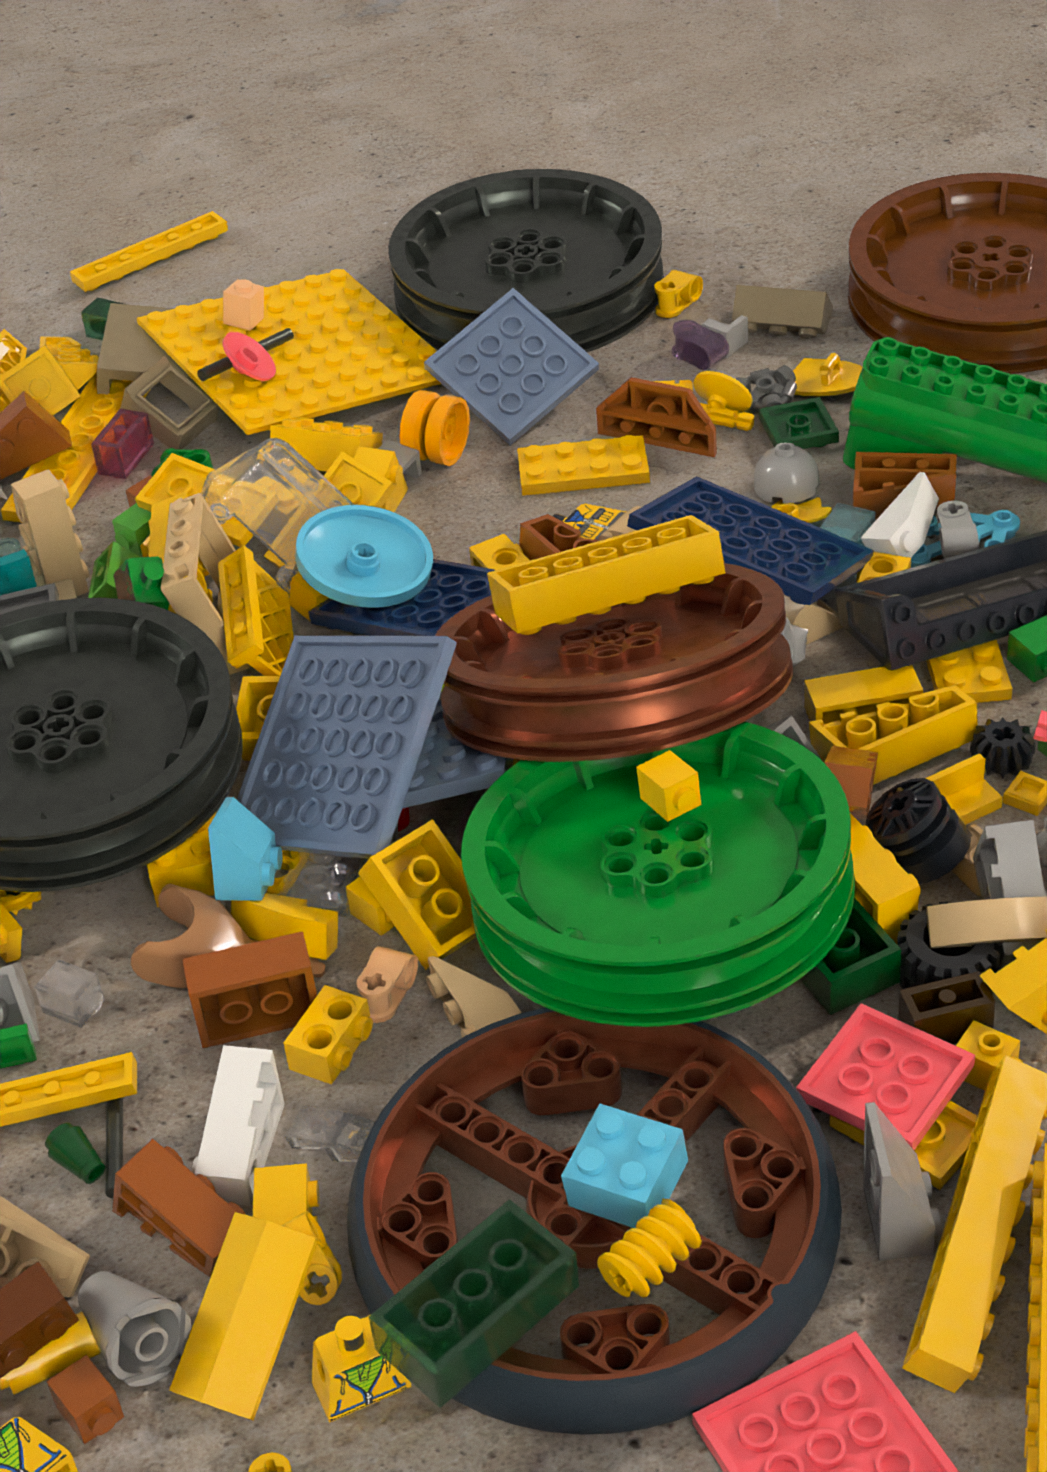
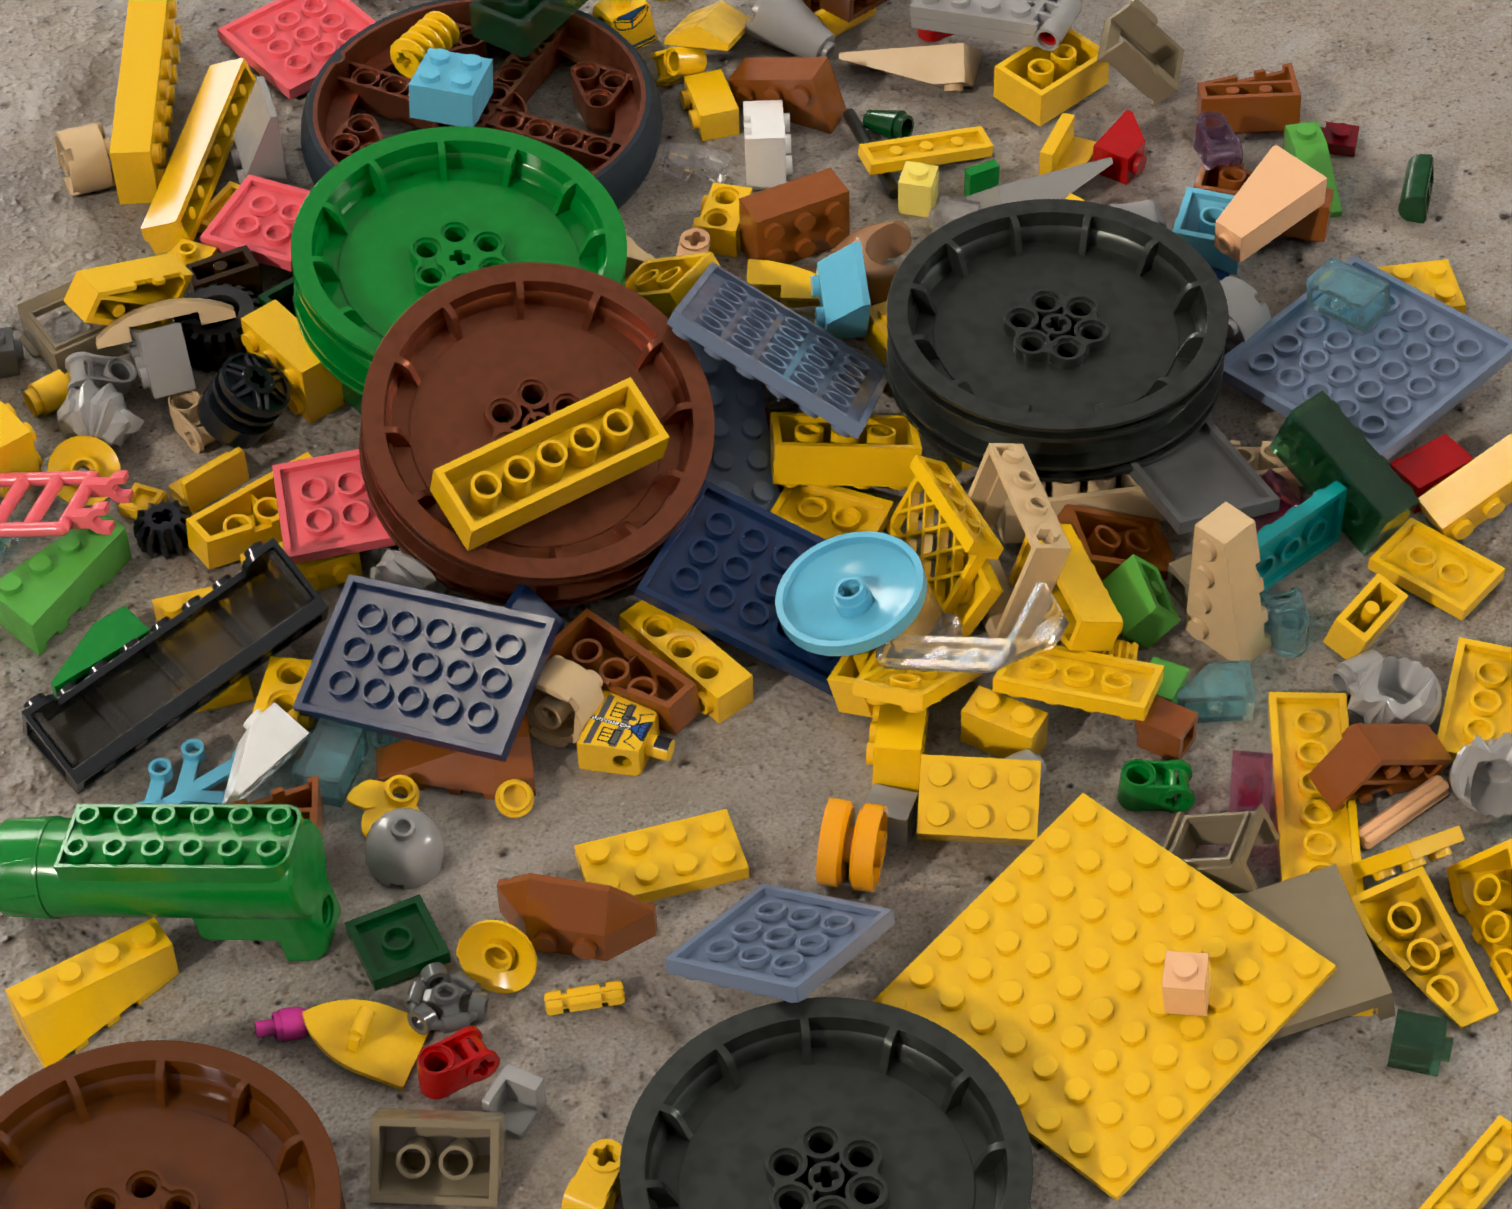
camera: 165 degrees right, 5 degrees up
(89, 1034) = (918, 189): none -> light yellow brick
(95, 519) = (1220, 692): none -> clear light blue slope
(141, 581) = (1065, 484): green torso -> none
(225, 364) = (1143, 910): pearl dark grey bar -> none
(248, 356) = (1125, 874): coral dish -> none
(669, 785) = (447, 262): yellow brick -> none
(698, 344) = (558, 1068): clear purple piece -> none
(766, 352) = (454, 1063): none -> red piece
(832, 691) = (326, 508): none -> coral plate
(856, 774) = (307, 393): dark orange wedge -> none
(957, 529) = (201, 754): light grey piece -> none

